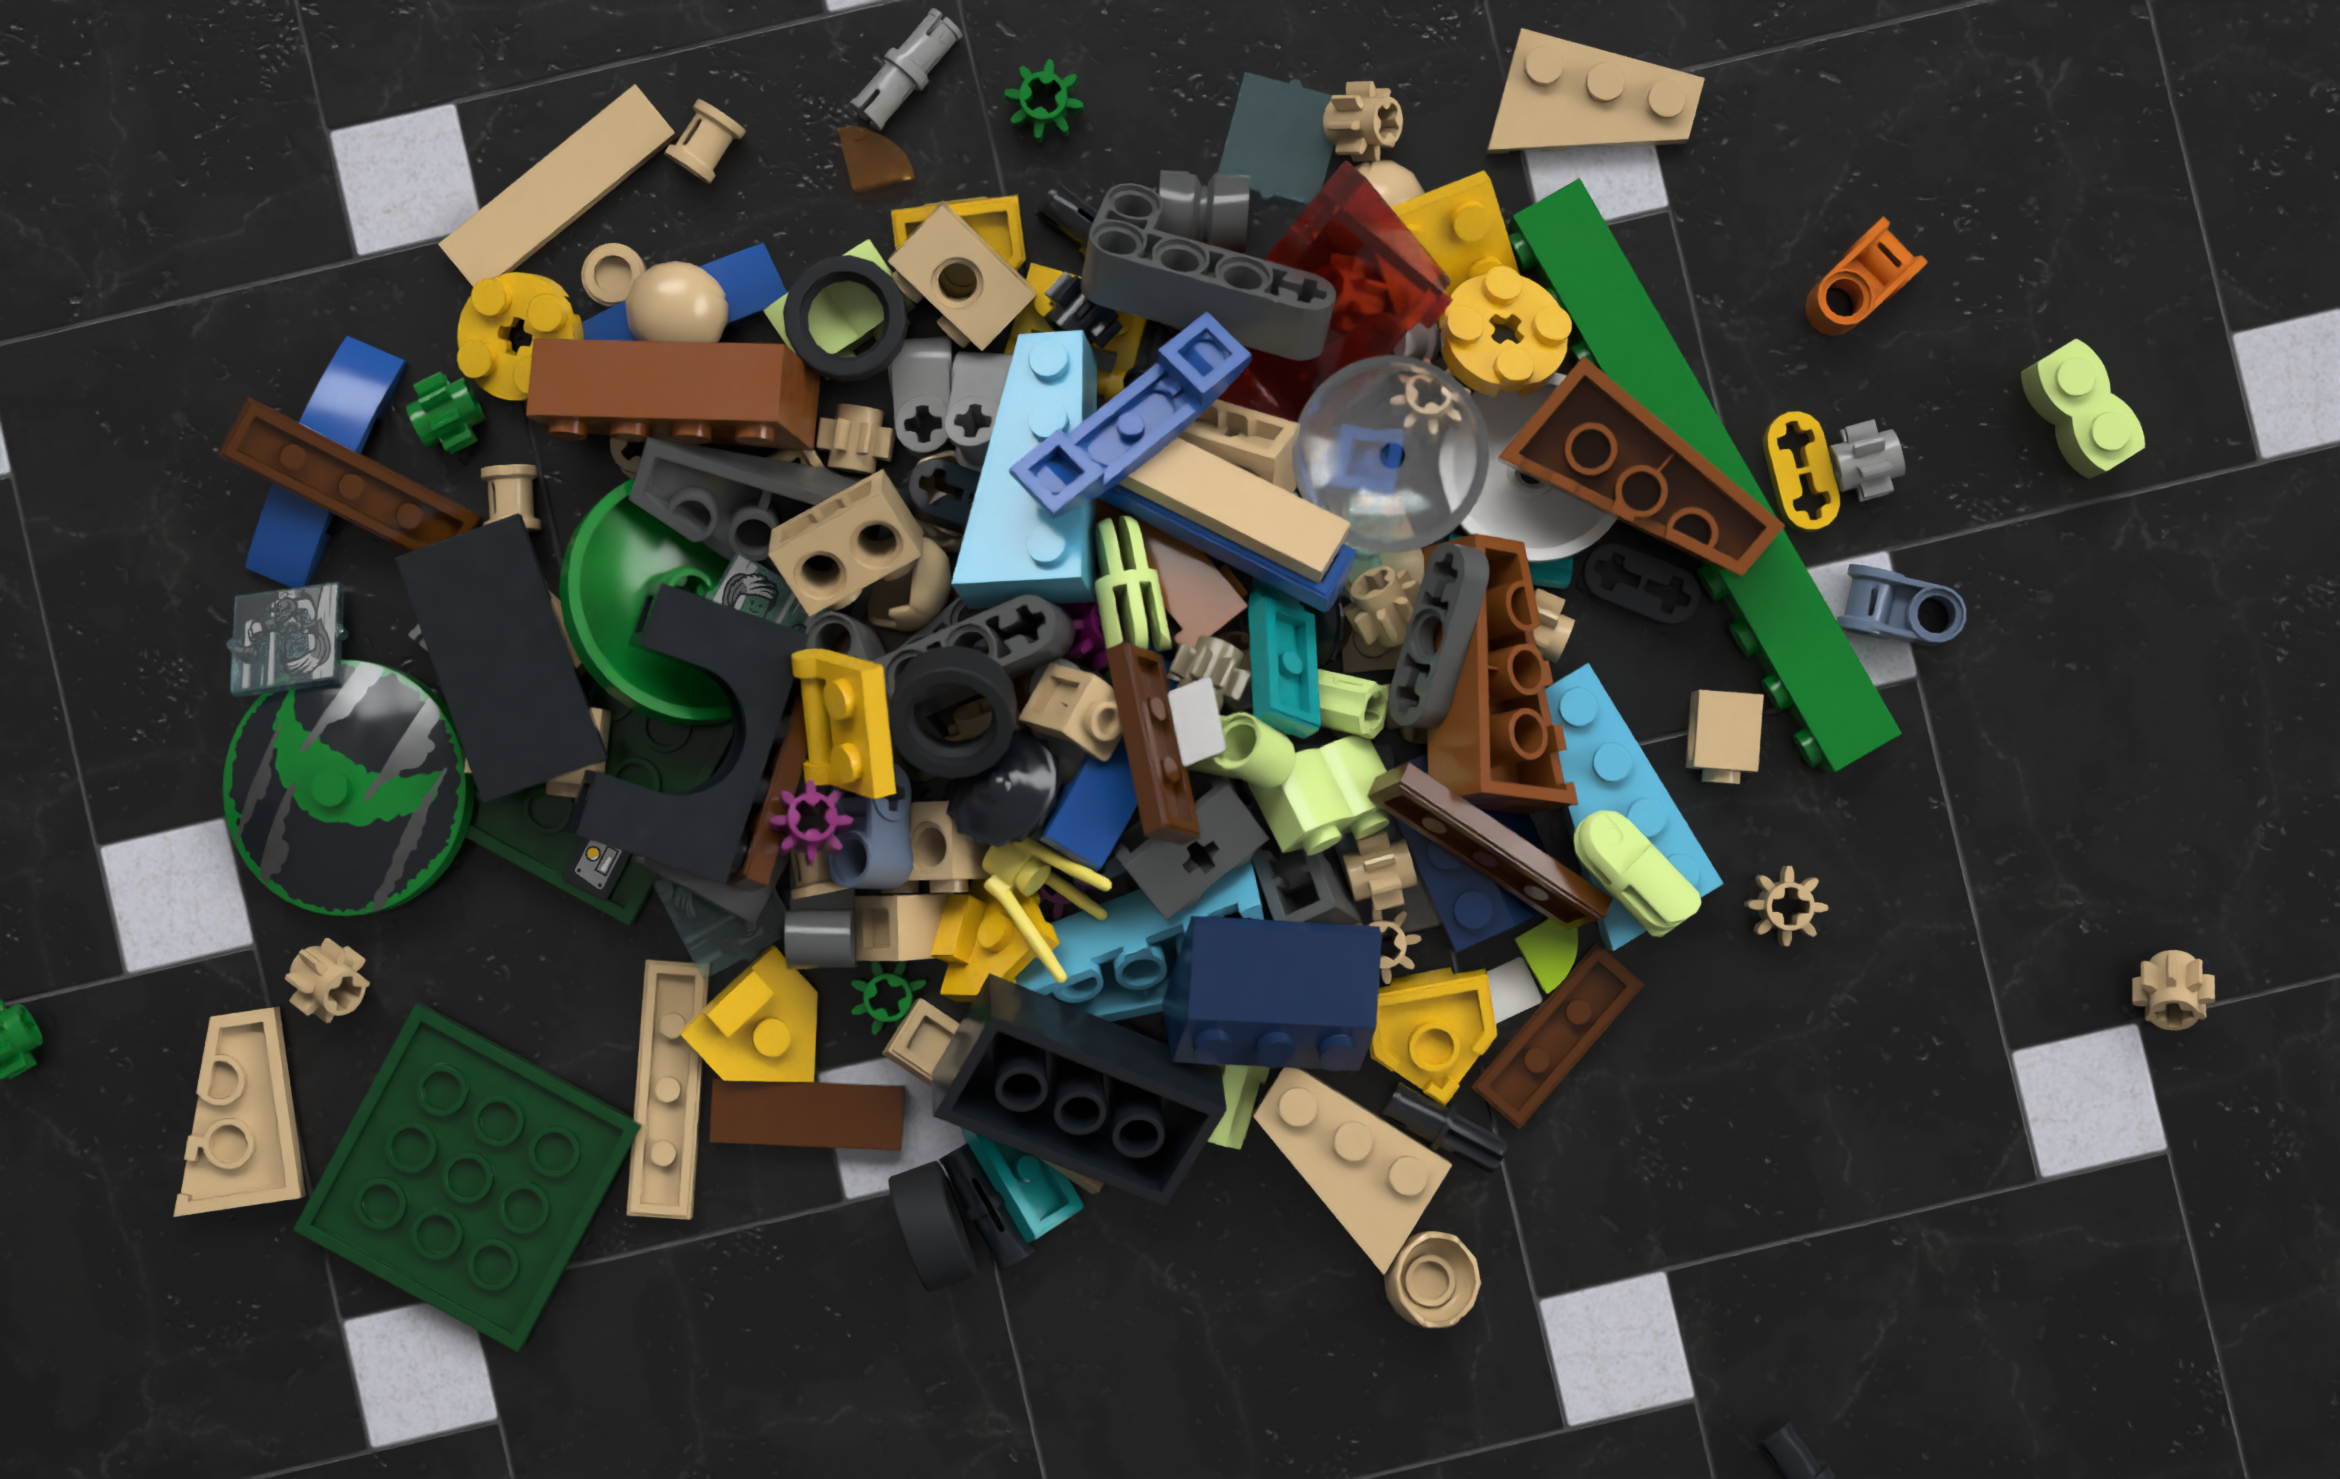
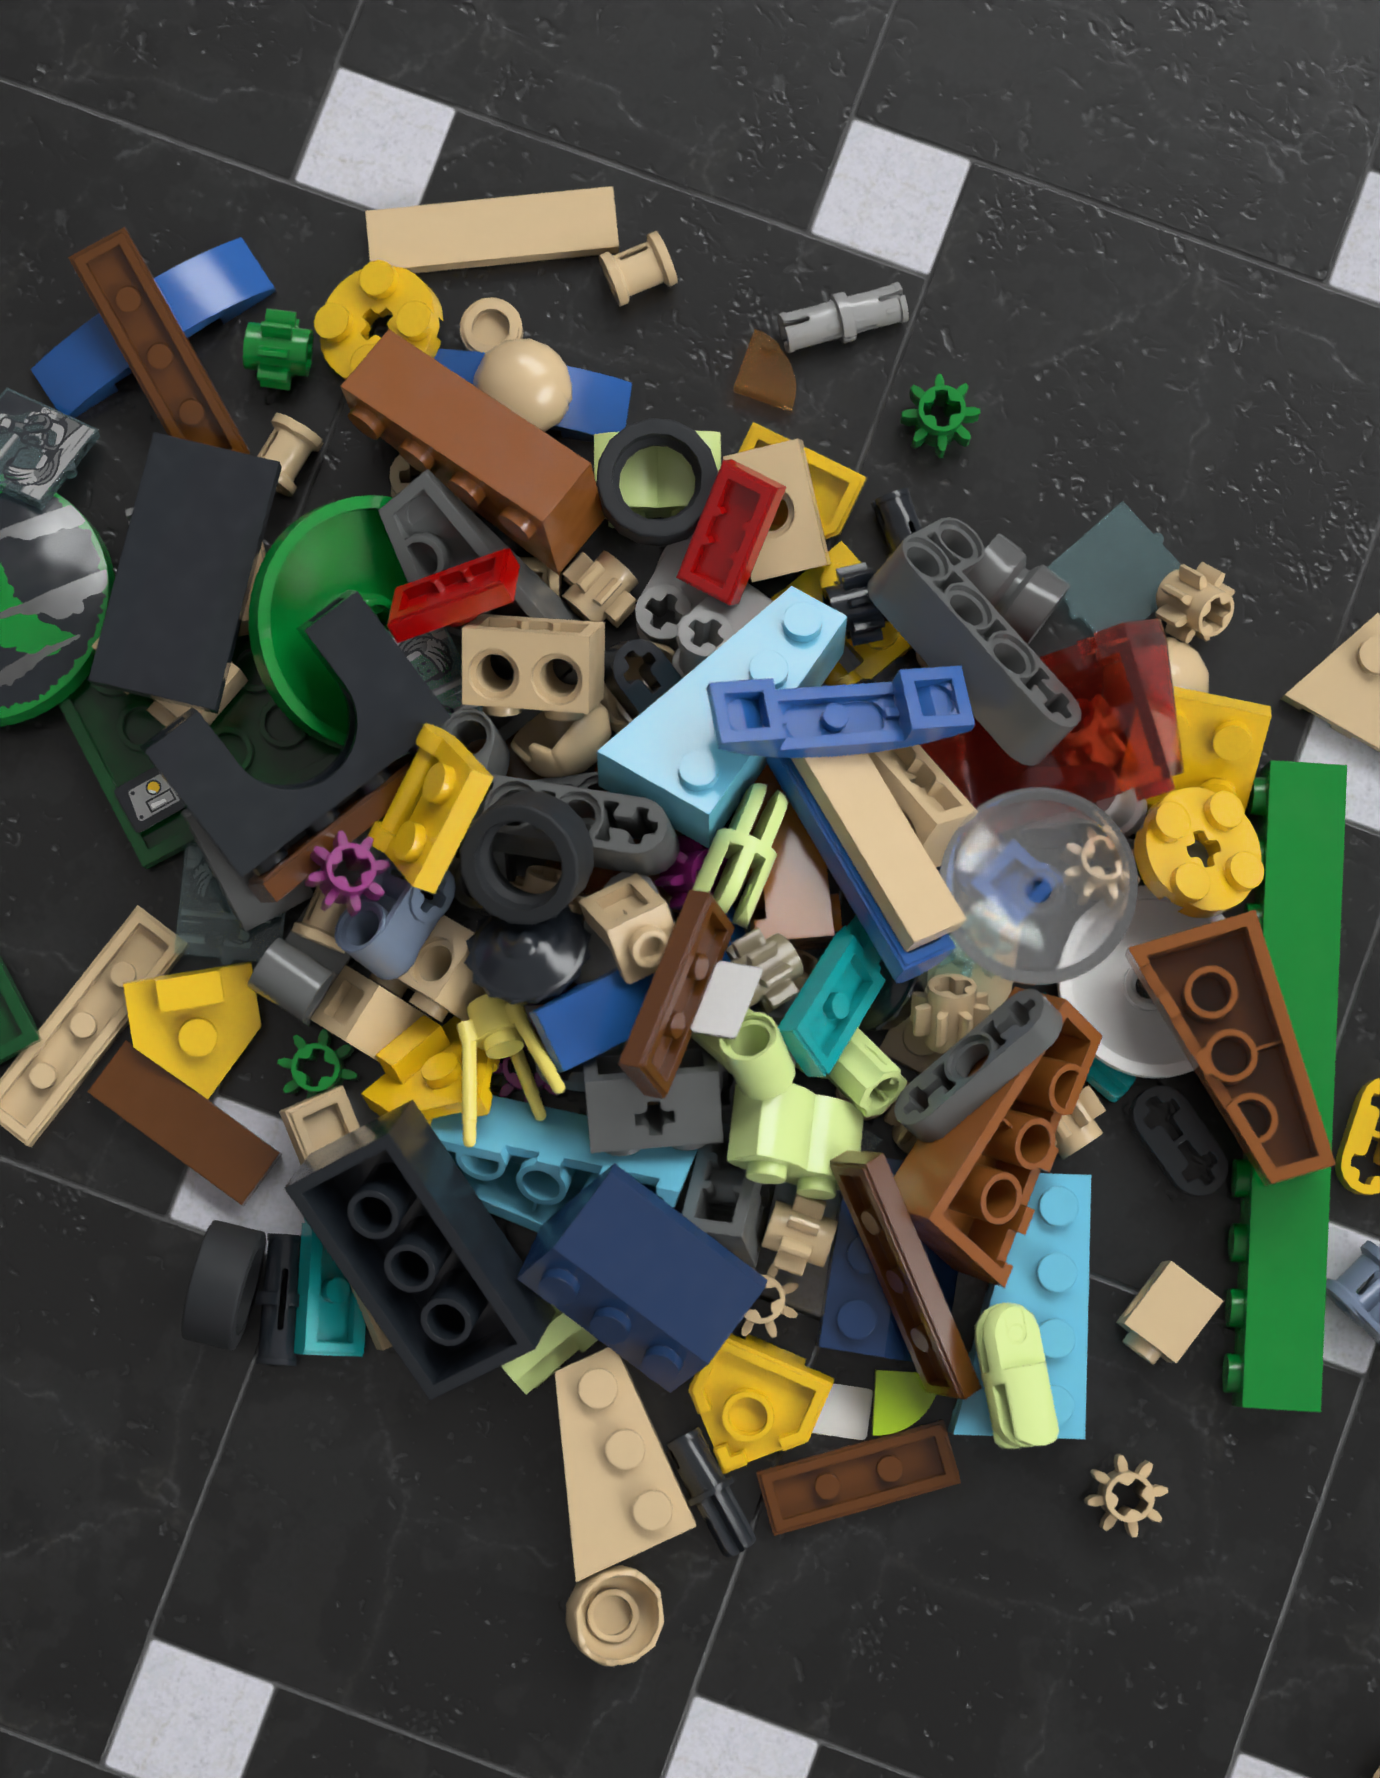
camera: 30 degrees right, 5 degrees down
(741, 530) = (453, 595): none -> red plate
(937, 322) = (731, 532): none -> red plate

